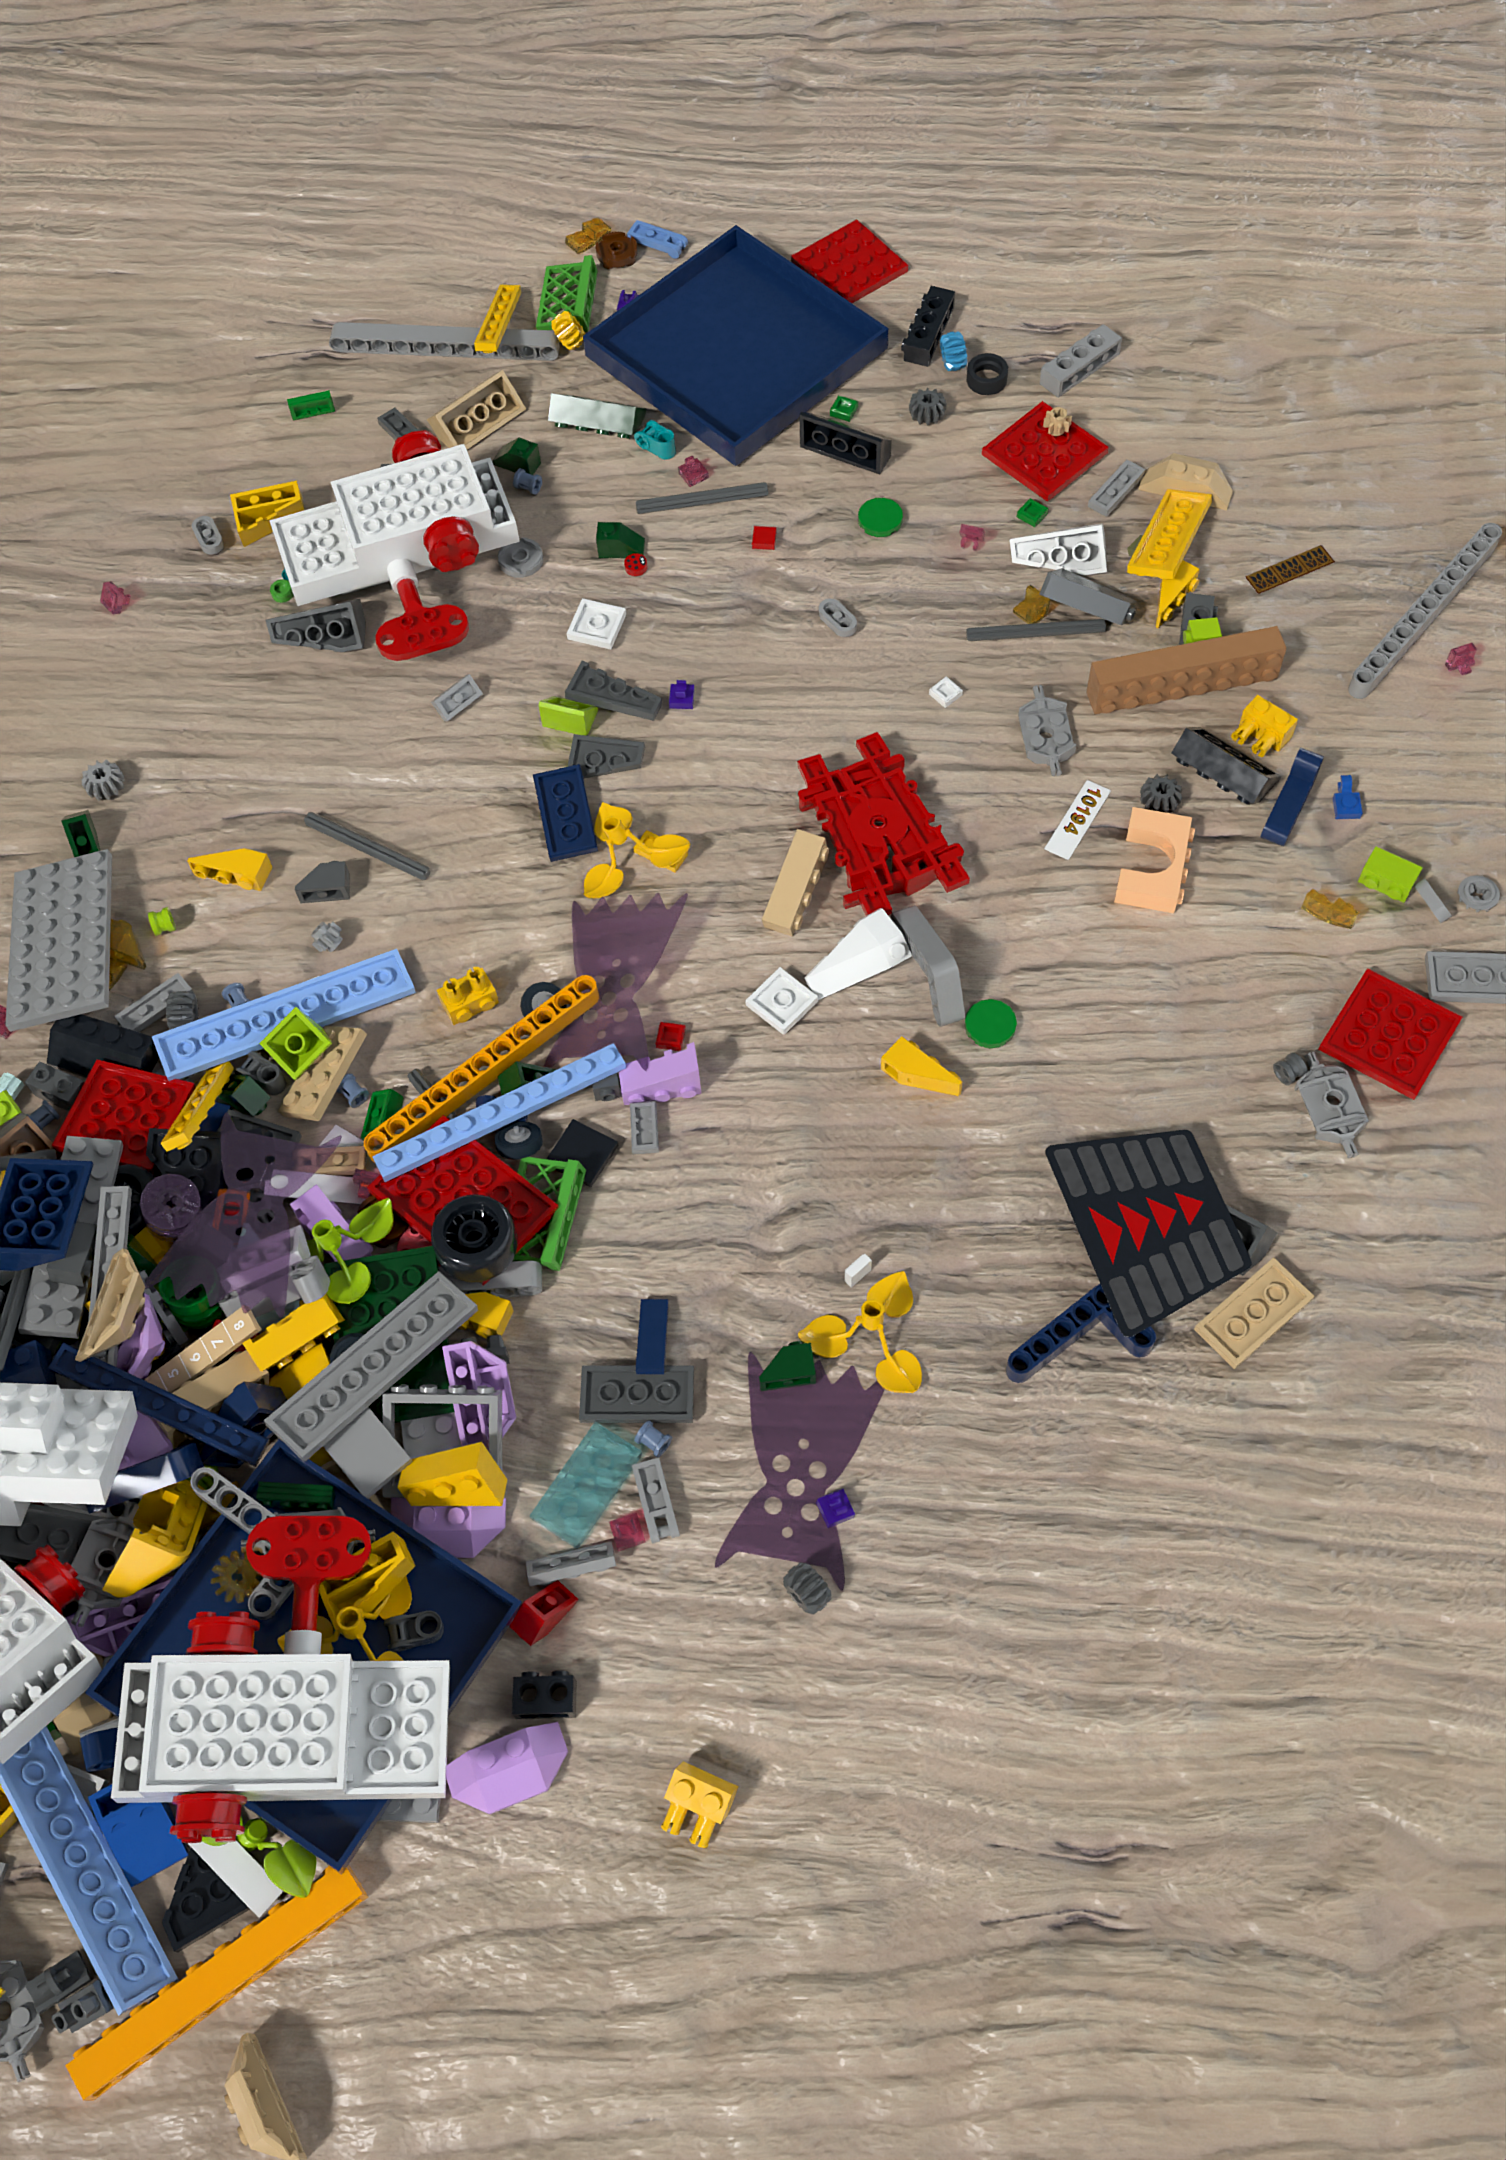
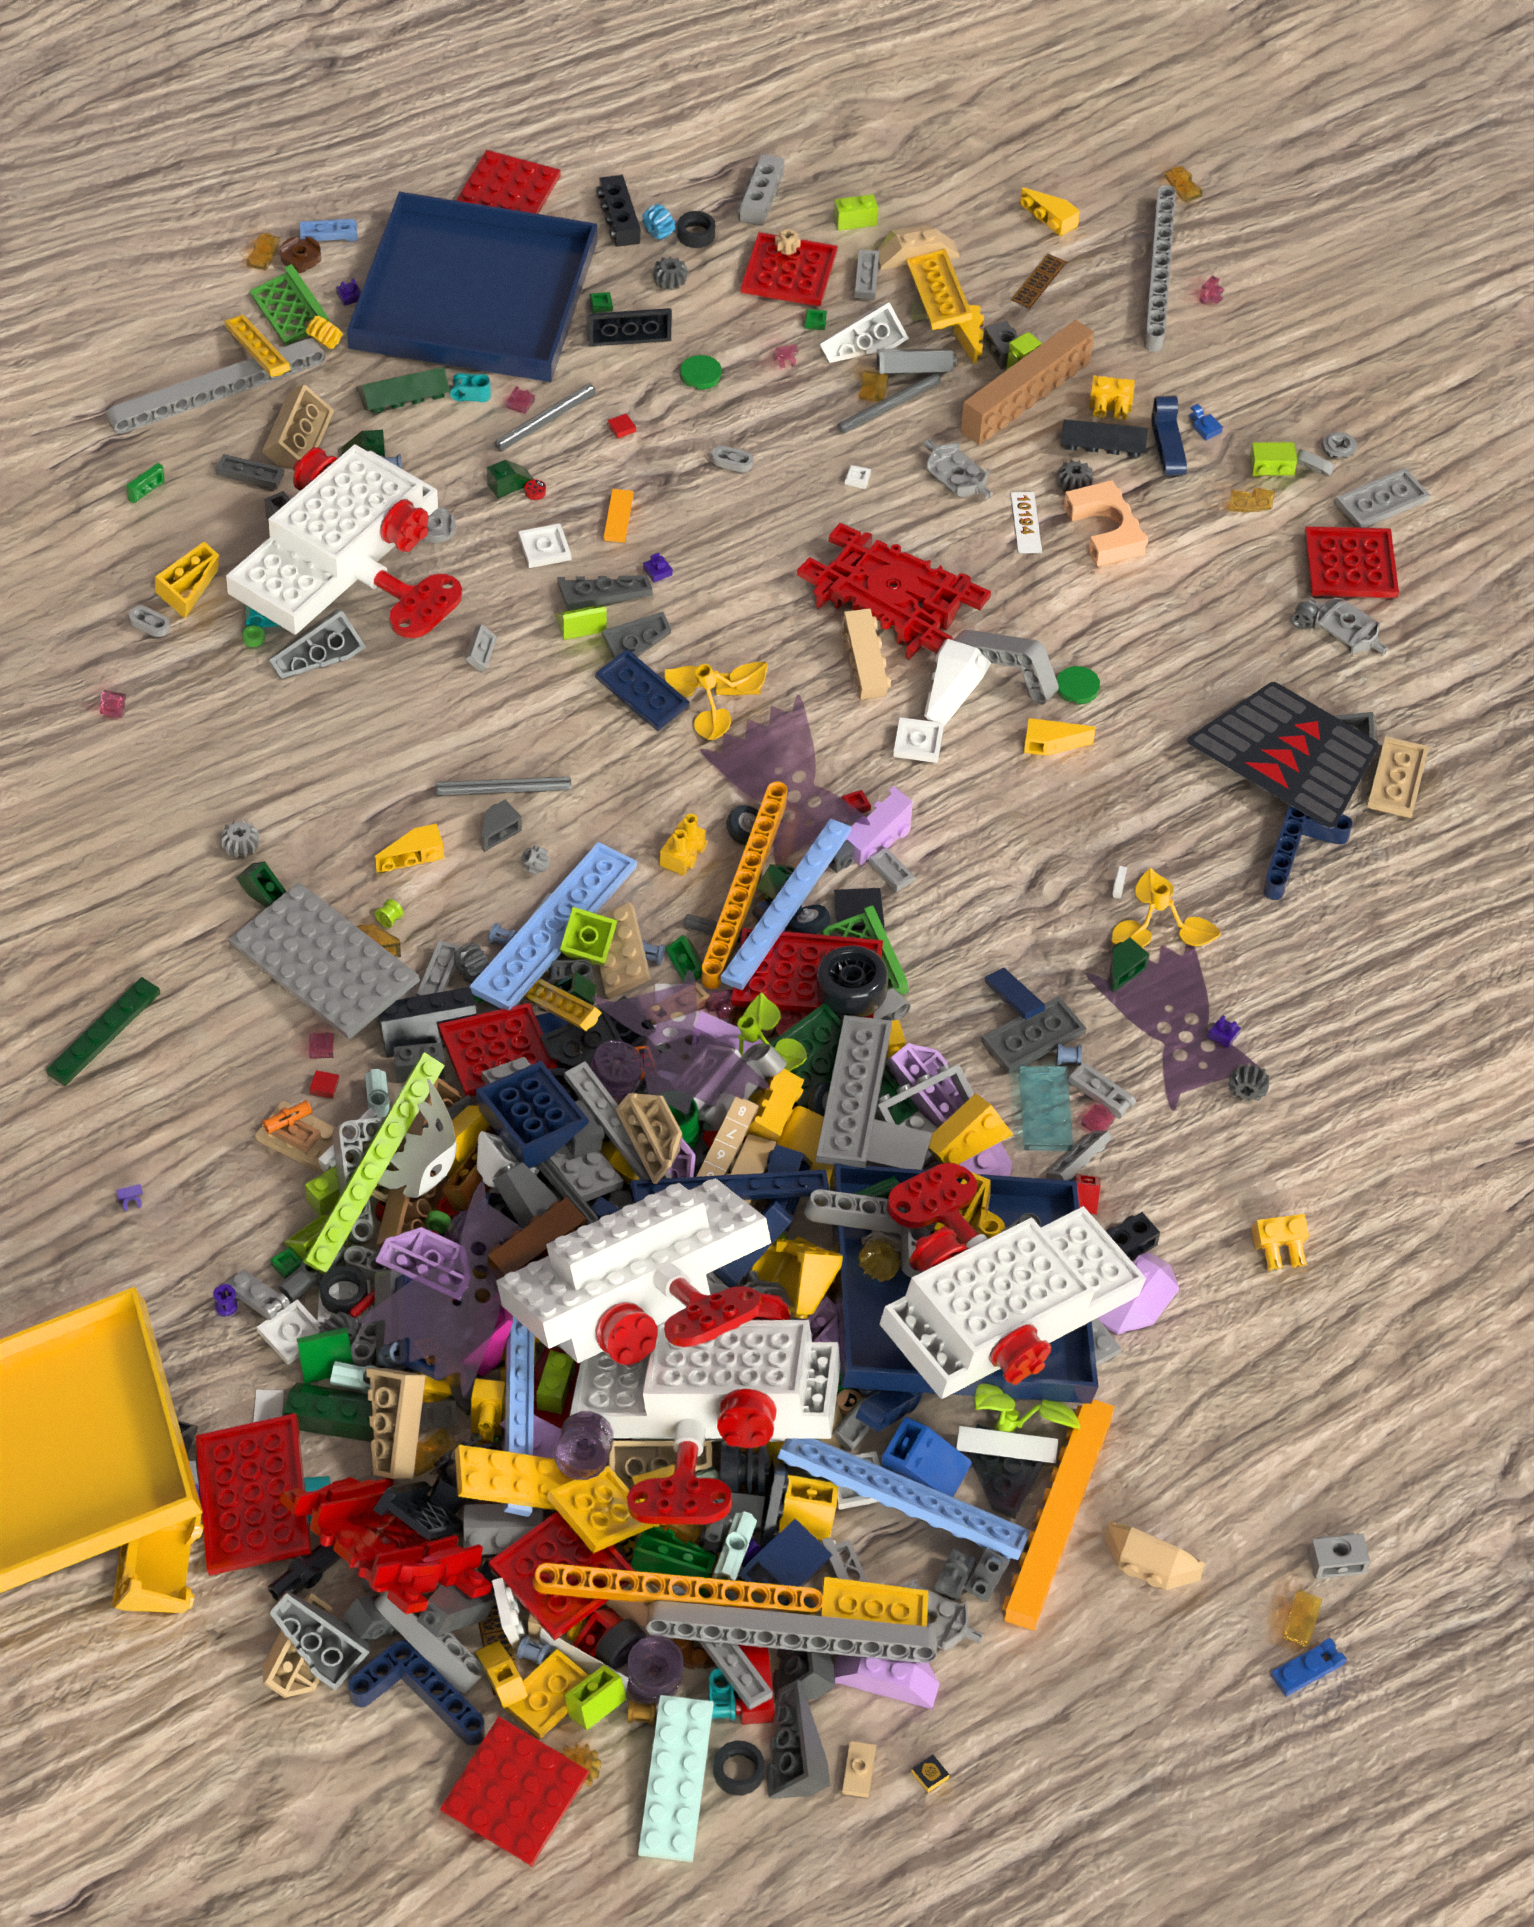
camera: 40 degrees left, 10 degrees down
(689, 625) = (618, 515): none -> light orange tile
(1153, 420) = (855, 212): none -> lime brick
(1357, 503) = (1051, 210): none -> yellow slope

